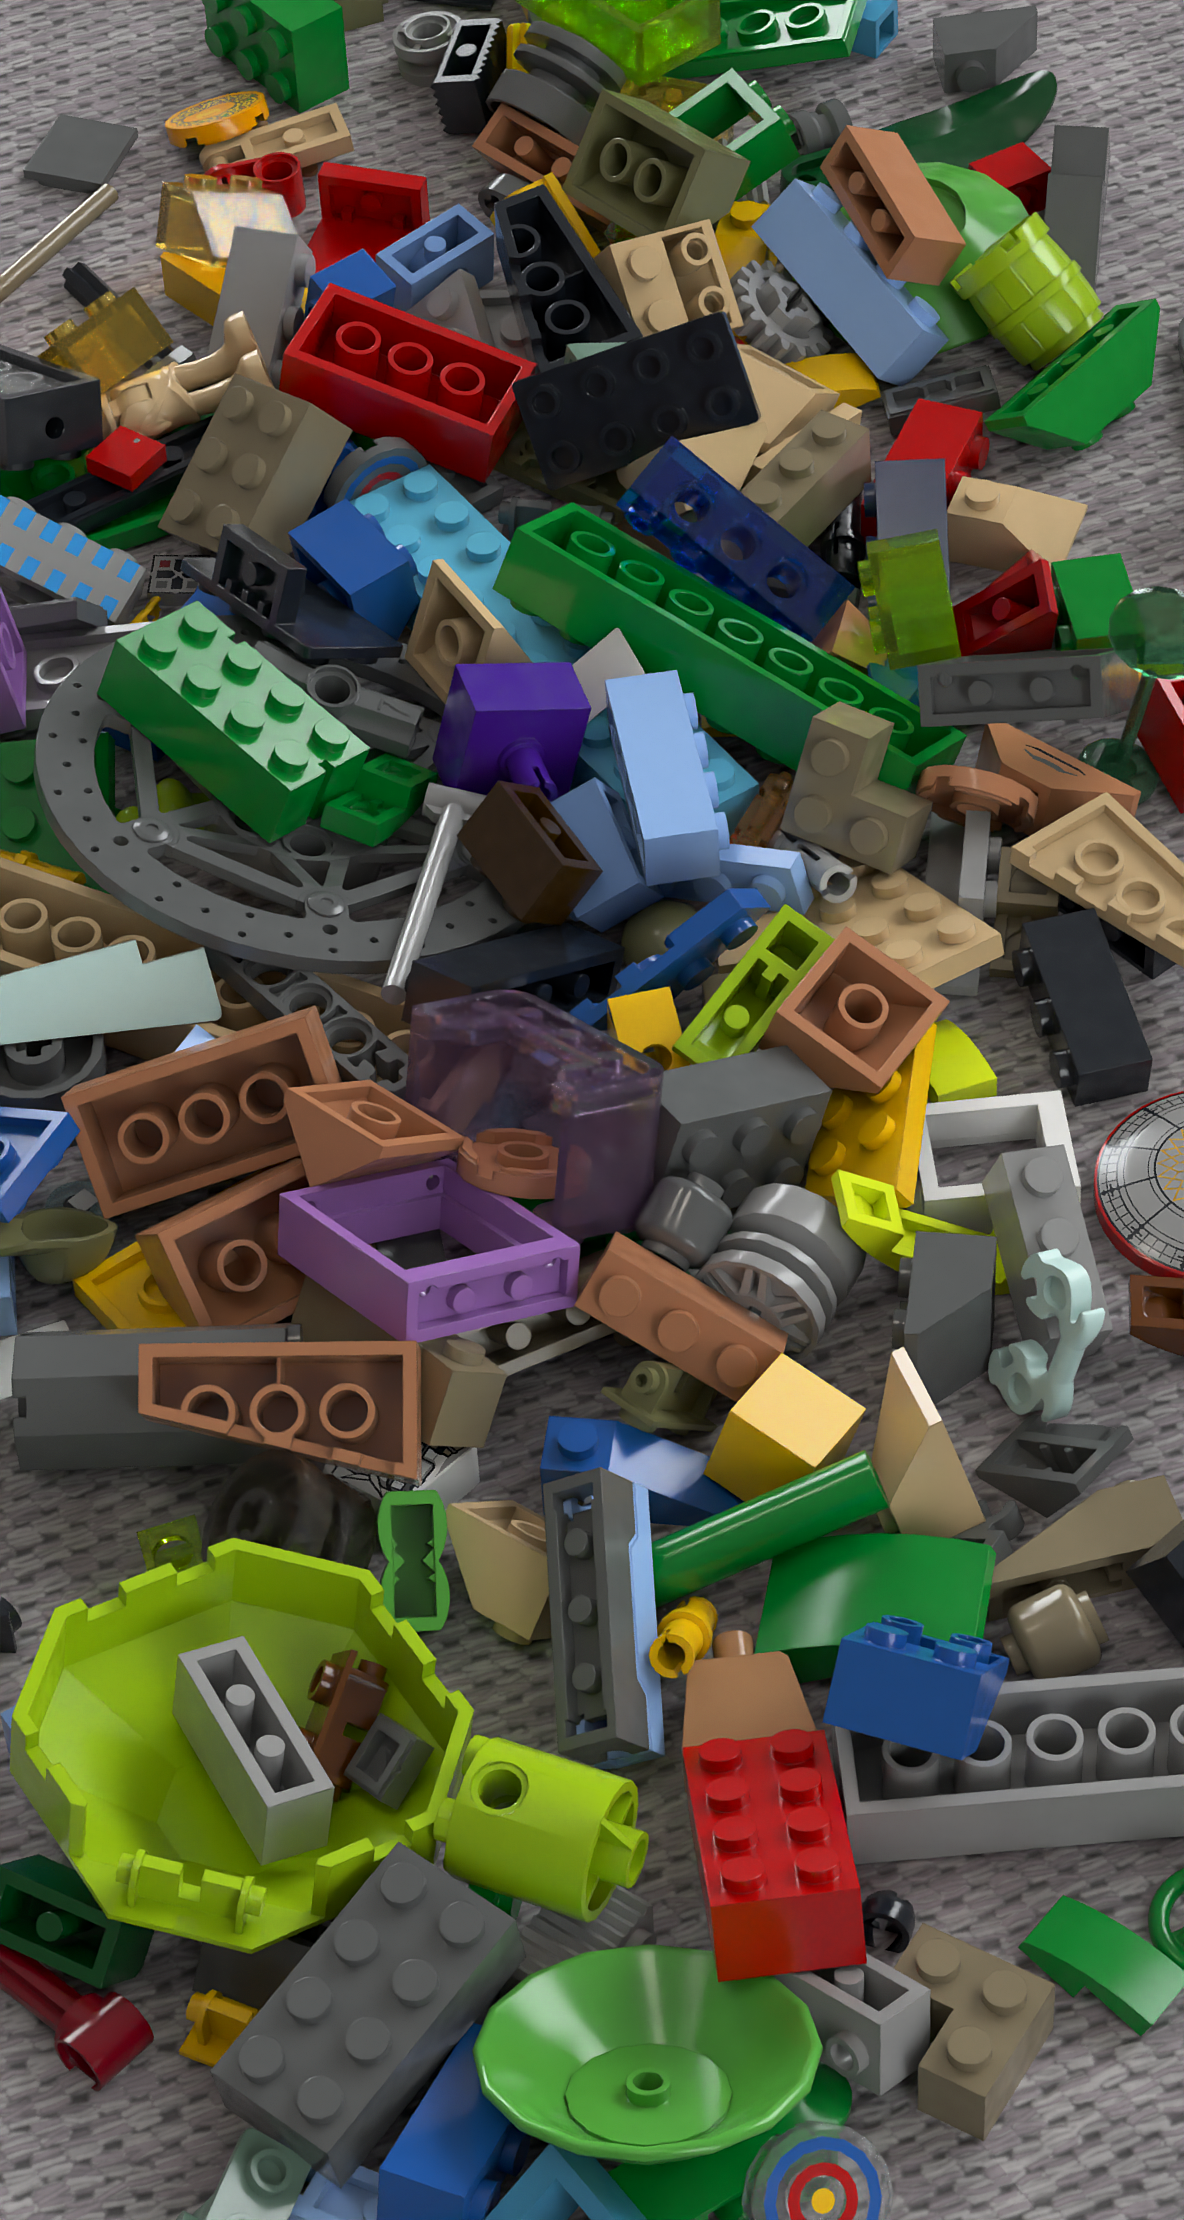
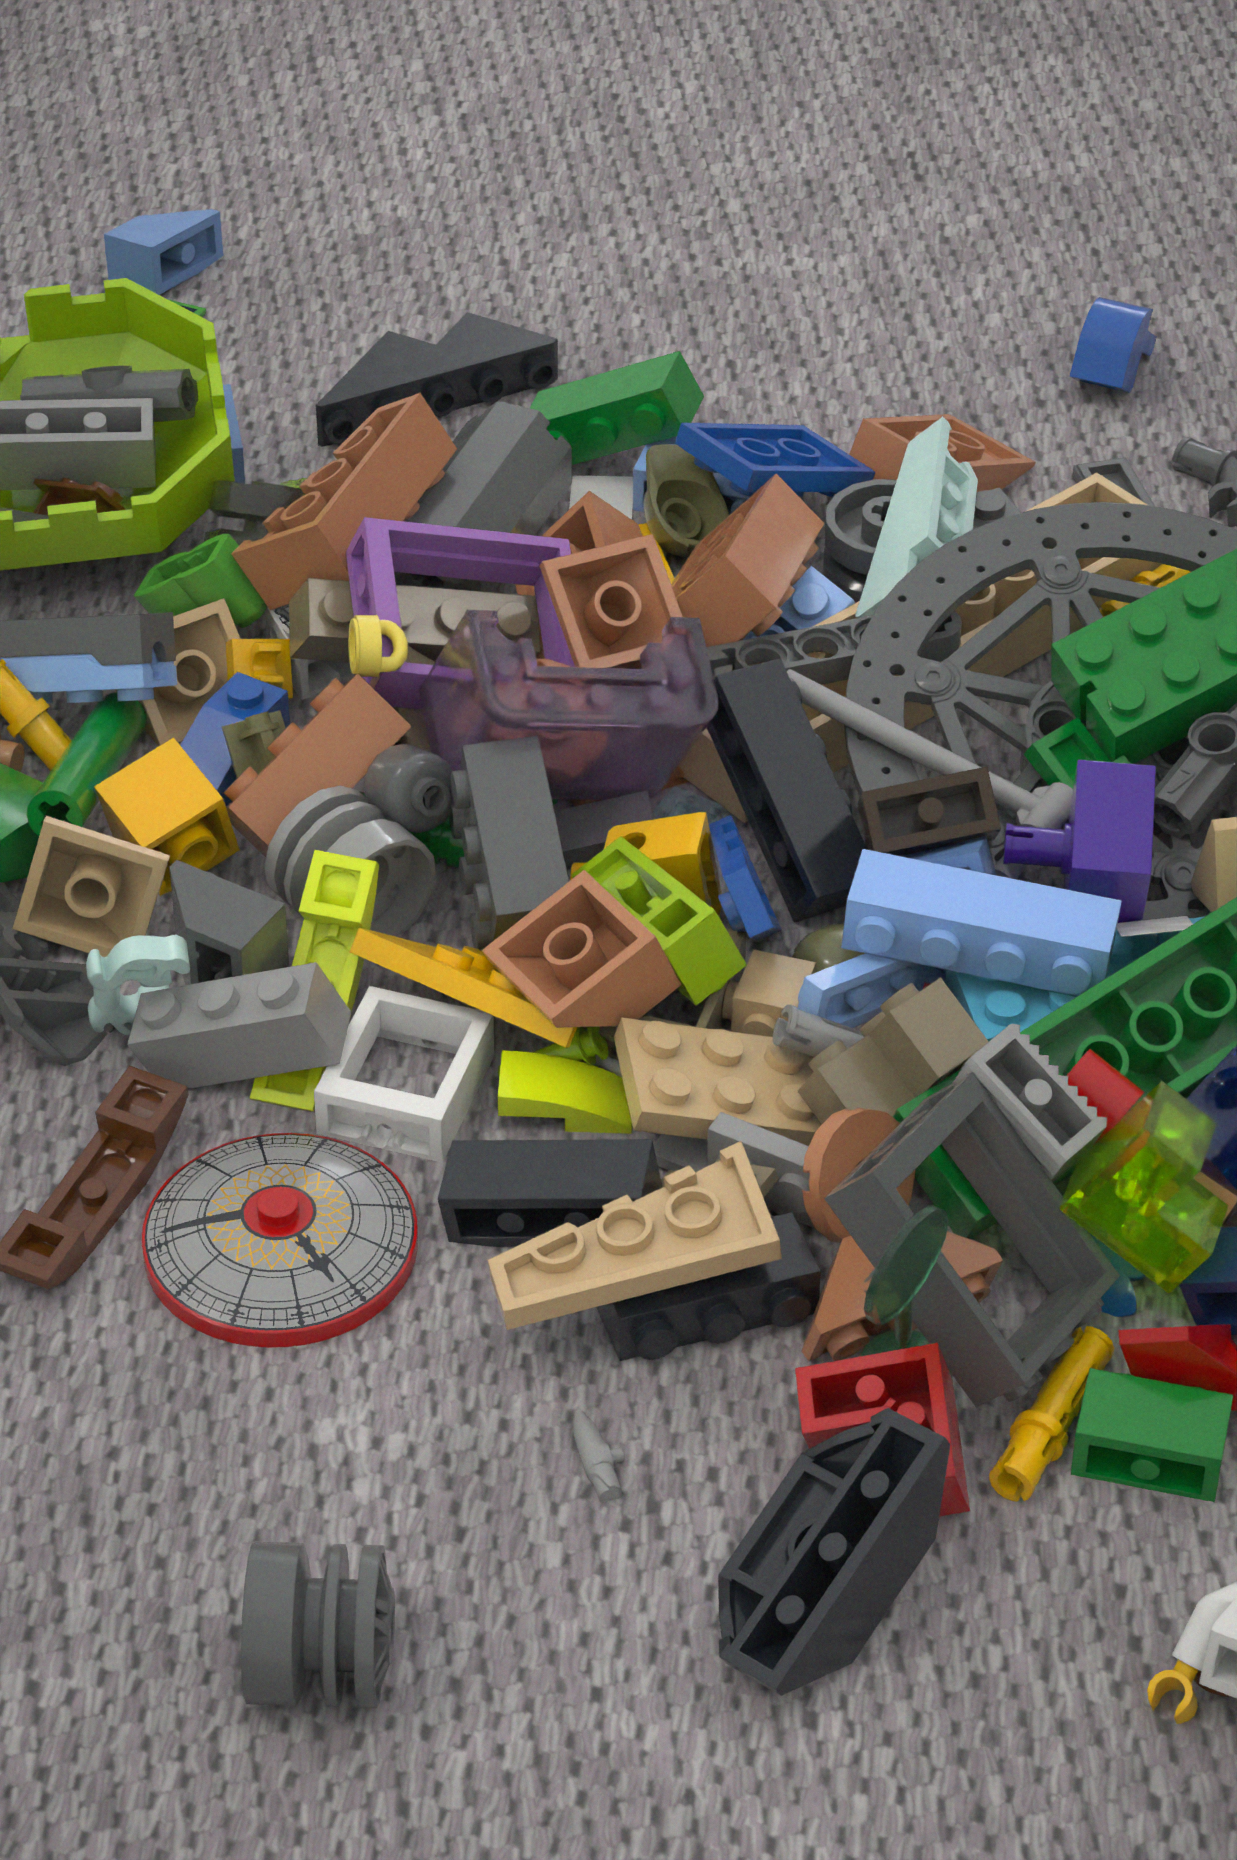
camera: 110 degrees right, 5 degrees down
(151, 1706) = (172, 390): none -> dark grey piece
(499, 1478) = (262, 660): none -> yellow tile
(566, 1250) = (366, 646): none -> light yellow tile
(837, 650) = (1104, 1088): none -> red brick
(886, 662) = (1036, 1100): none -> light grey brick

